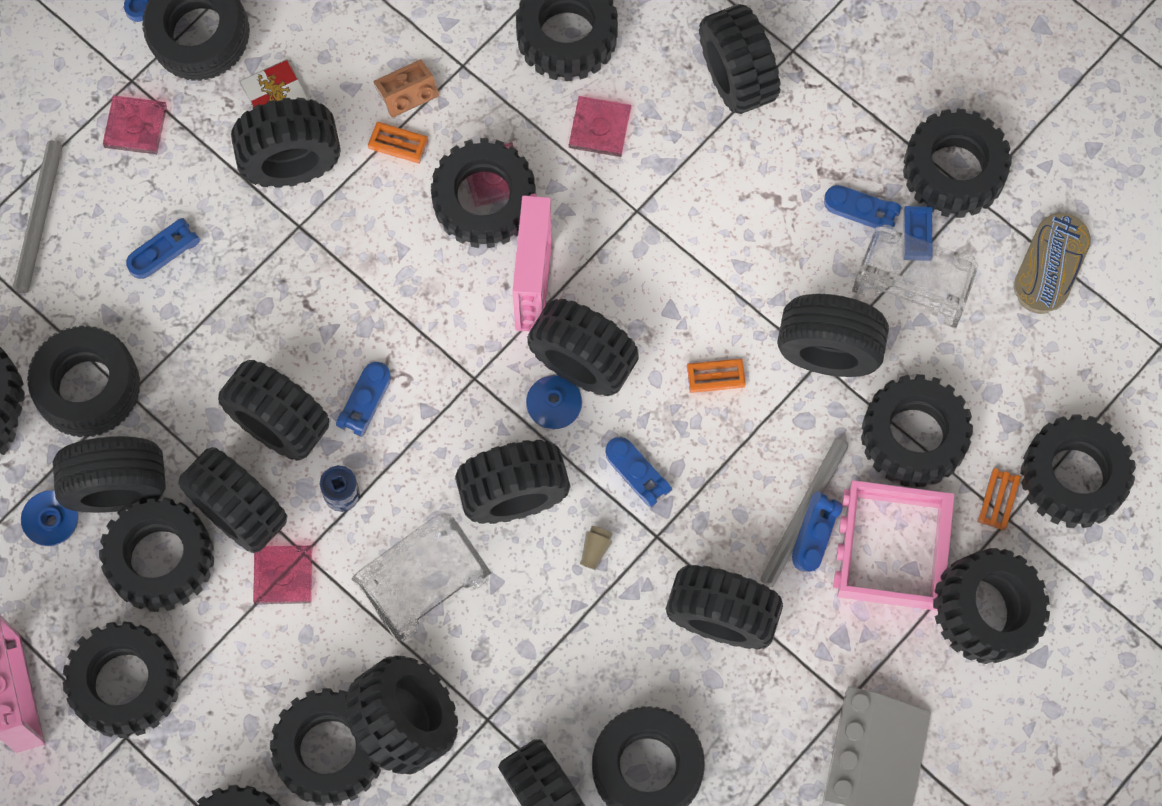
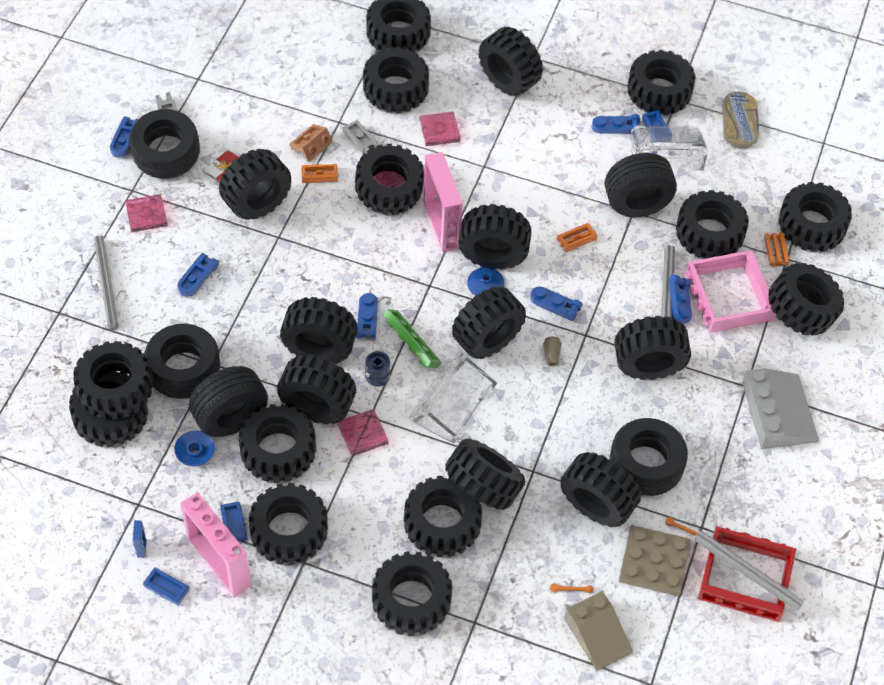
camera: 25 degrees left, 15 degrees down
(57, 643) = (233, 520): none -> blue tile
(409, 457) = (412, 338): none -> bright green plate
(479, 106) = (360, 136): none -> light grey hinge

